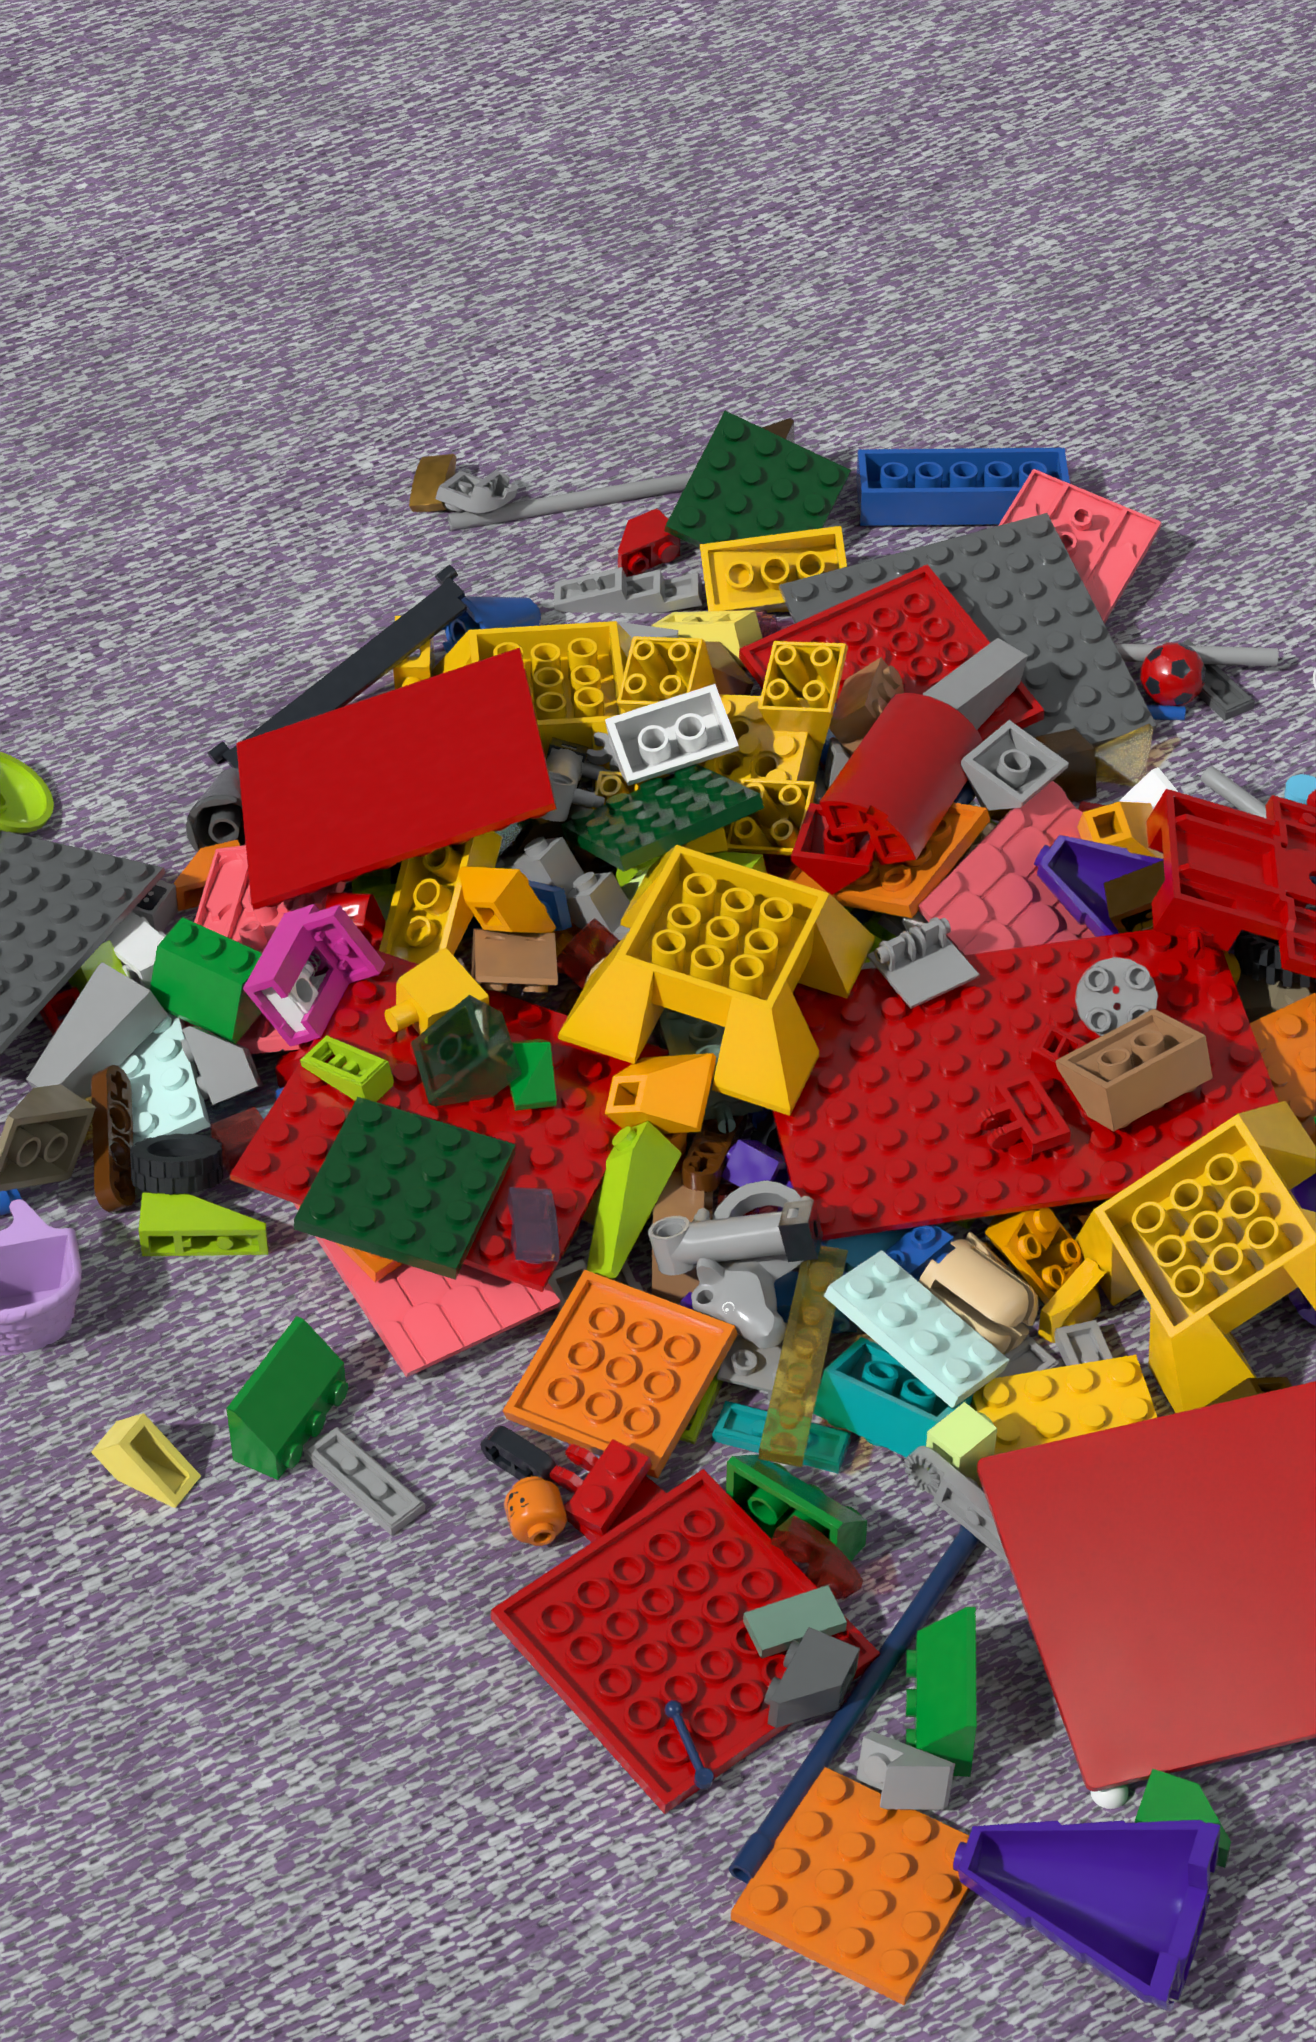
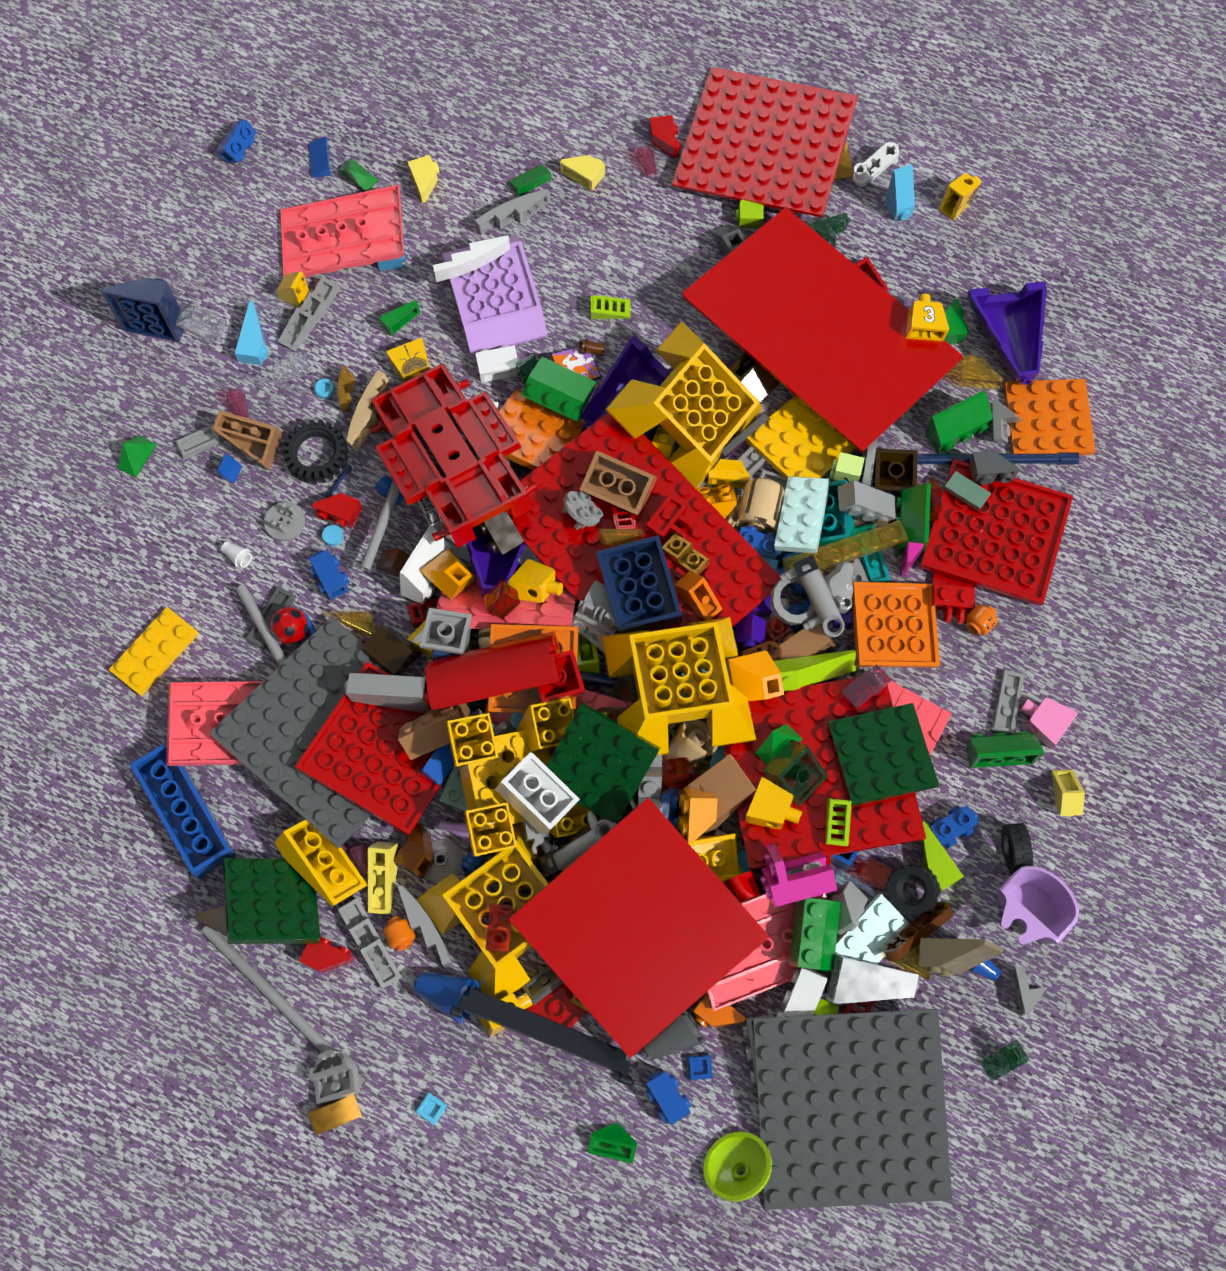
camera: 120 degrees left, 25 degrees up
(115, 1295) = (1016, 846): none -> black tyre
(152, 770) = (664, 1091): none -> blue brick
(153, 710) = (613, 1143): none -> green slope
(161, 833) = (700, 1067): none -> blue tile
(226, 1276) = (958, 823): none -> blue brick
(283, 1507) = (1048, 720): none -> bright pink torso
(359, 569) = (431, 1108): none -> medium azure tile
(507, 635) = (499, 927): none -> clear red slope
(516, 1454) = (958, 644): black beam -> none
(614, 609) = (399, 934): none -> orange head
(703, 1776) = (1053, 488): dark blue hinge -> none
(724, 1441) = (910, 556): none -> dark pink slope
(856, 1081) = (698, 595): none -> orange slope
(873, 1438) = (866, 503): none -> light grey brick
(910, 1536) = (895, 469): none -> dark brown slope
(922, 1008) = (639, 585): none -> dark blue slope
(946, 1112) = (684, 555): none -> pearl gold slope
(1021, 1033) = (617, 537): none -> clear yellow slope
(1022, 846) = (501, 600): none -> clear red brick
(1034, 917) = (535, 582): none -> yellow torso
(1042, 1793) = (977, 373): none -> clear yellow slope
(1137, 1346) = (740, 439): none -> dark grey tile
(1207, 1744) = (926, 320): none -> yellow torso
(1233, 748) = (326, 569): none -> blue brick
(1236, 552) = (154, 651): none -> yellow plate

